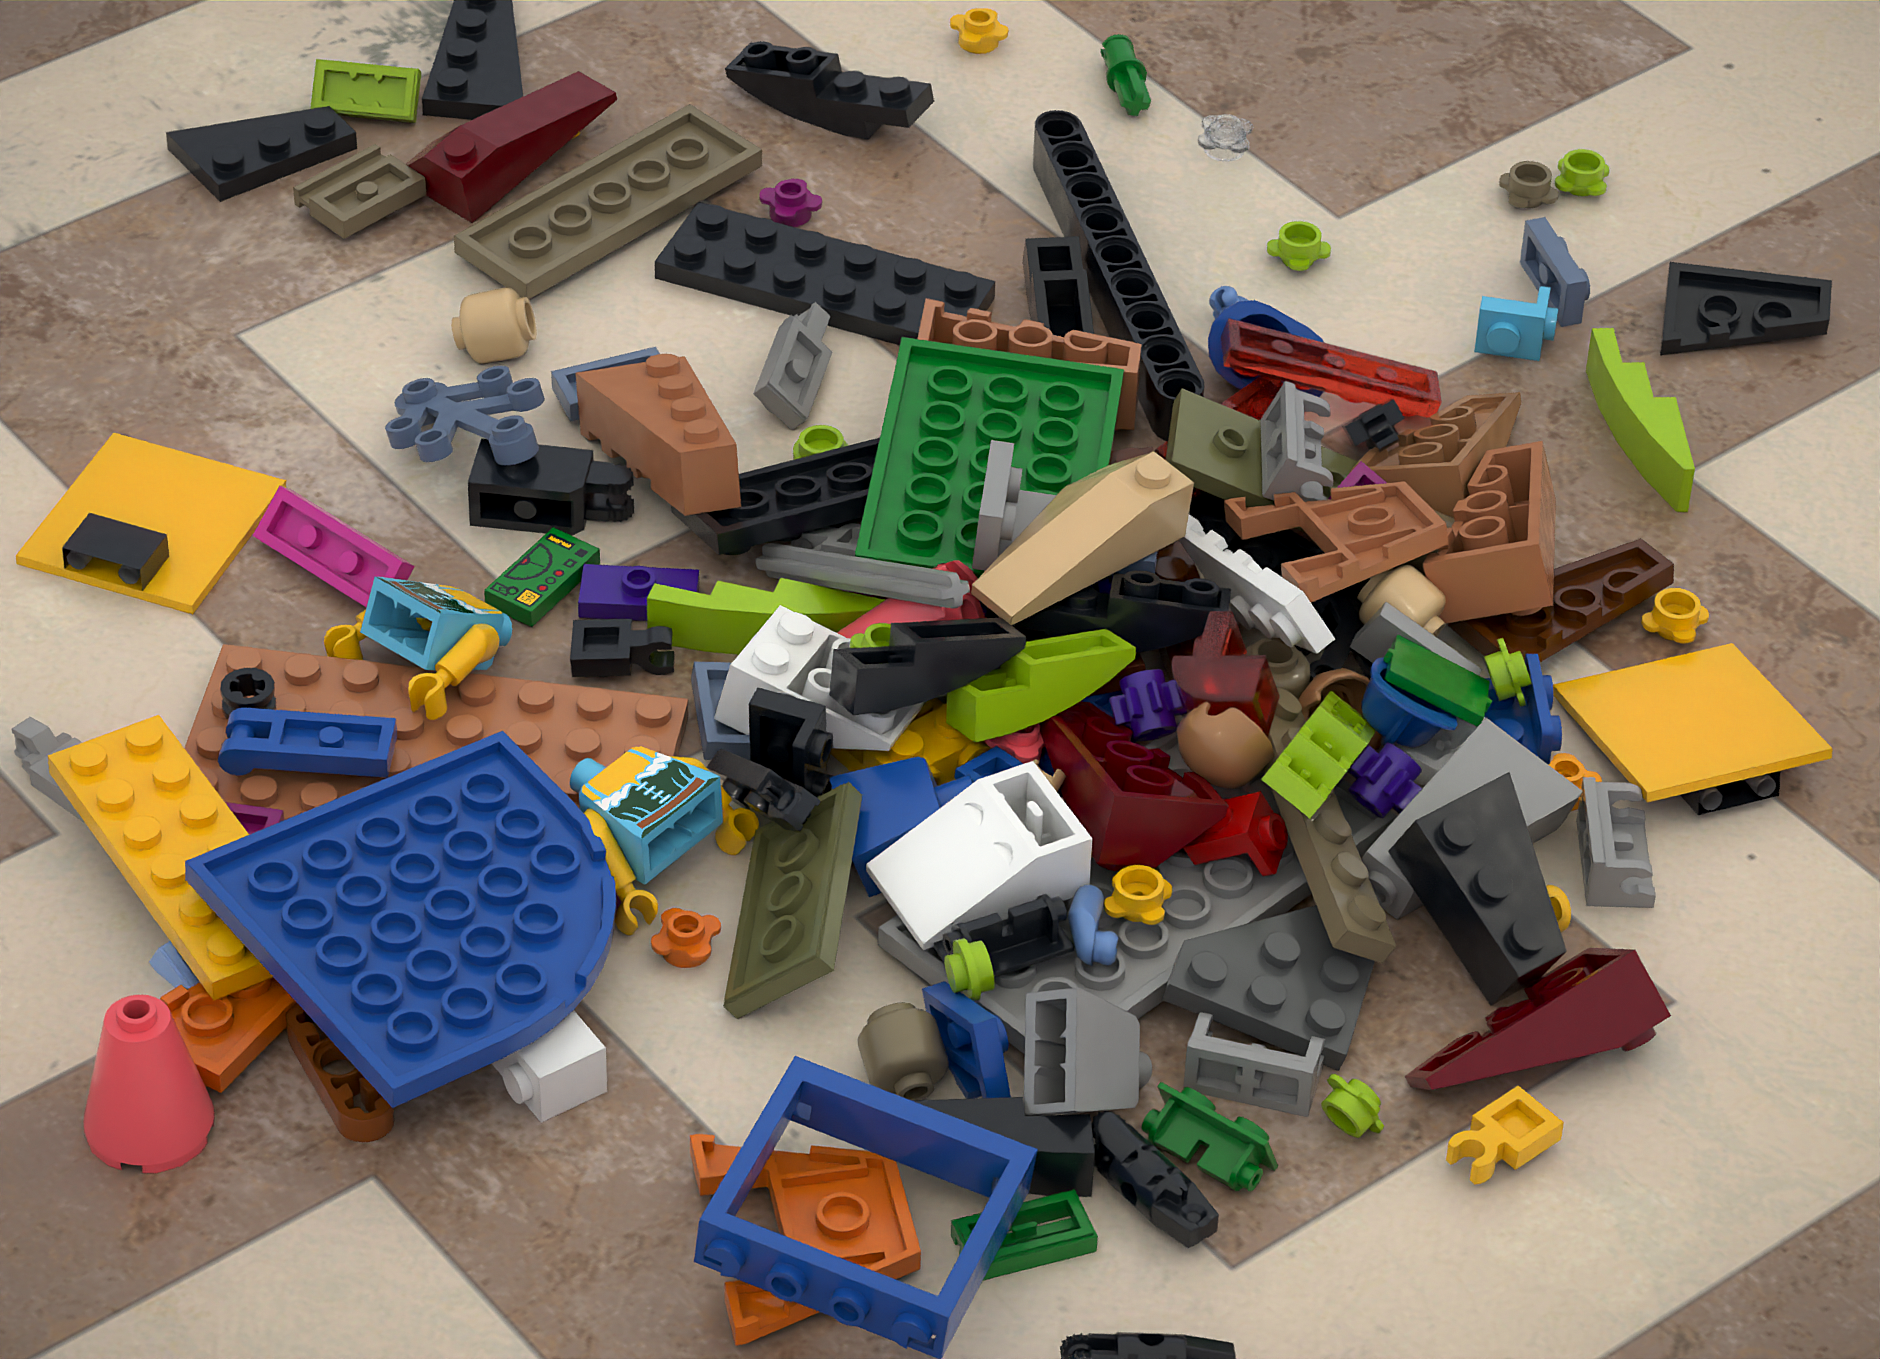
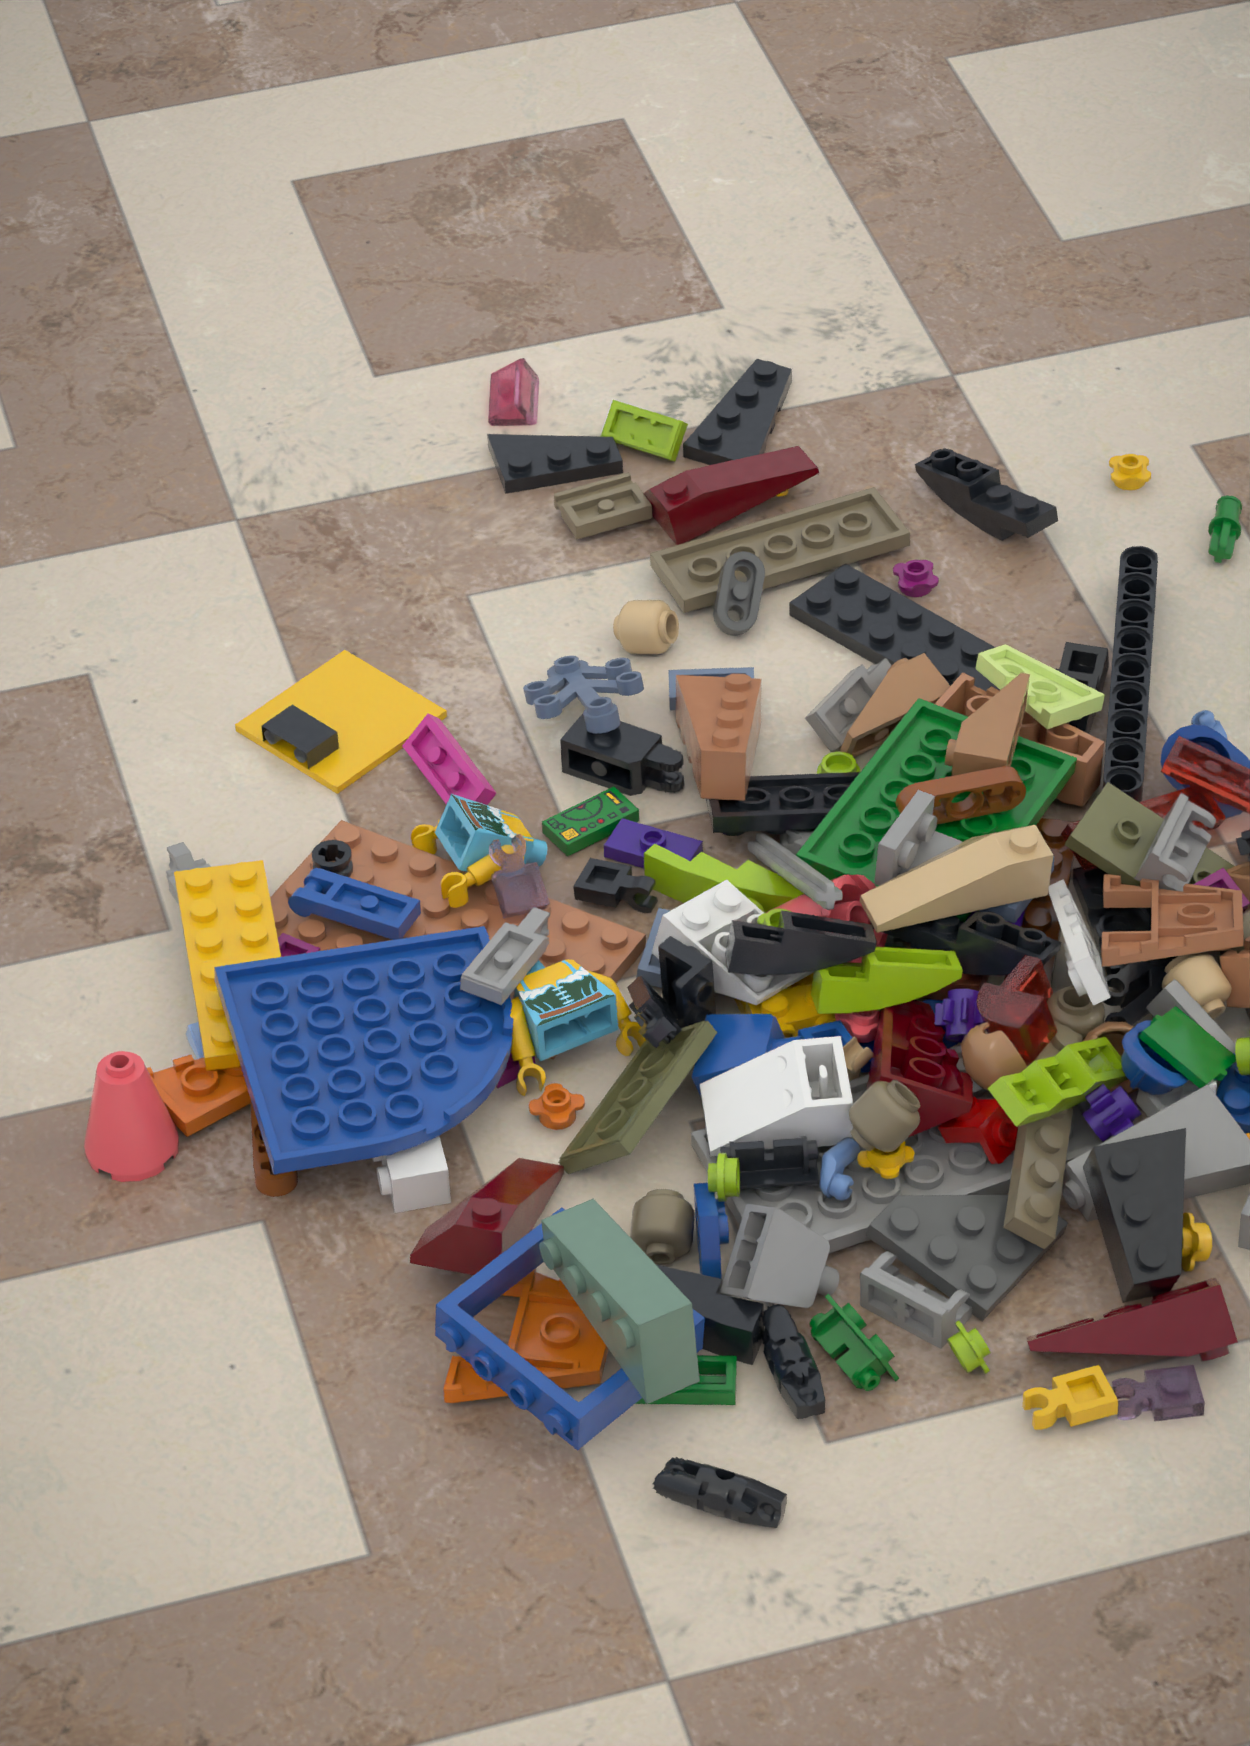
camera: 25 degrees right, 0 degrees up
(170, 80) = (514, 395): none -> clear pink slope
(511, 670) = (518, 884): none -> plate
(562, 763) = (507, 958): none -> light grey hinge
(595, 264) = (737, 595): none -> dark grey plate
(683, 1102) = (489, 1218): none -> dark red wedge
(858, 352) = (892, 700): none -> medium nougat slope
(945, 1146) = (624, 1298): none -> sand green wedge
(1025, 370) = (991, 732): none -> medium nougat slope
(1029, 297) = (1051, 694): none -> yellowish green wing
(1051, 431) = (1000, 789): none -> dark orange beam
(1136, 845) = (884, 1116): none -> dark tan head
(1604, 1098) = (1165, 1392): none -> clear purple plate

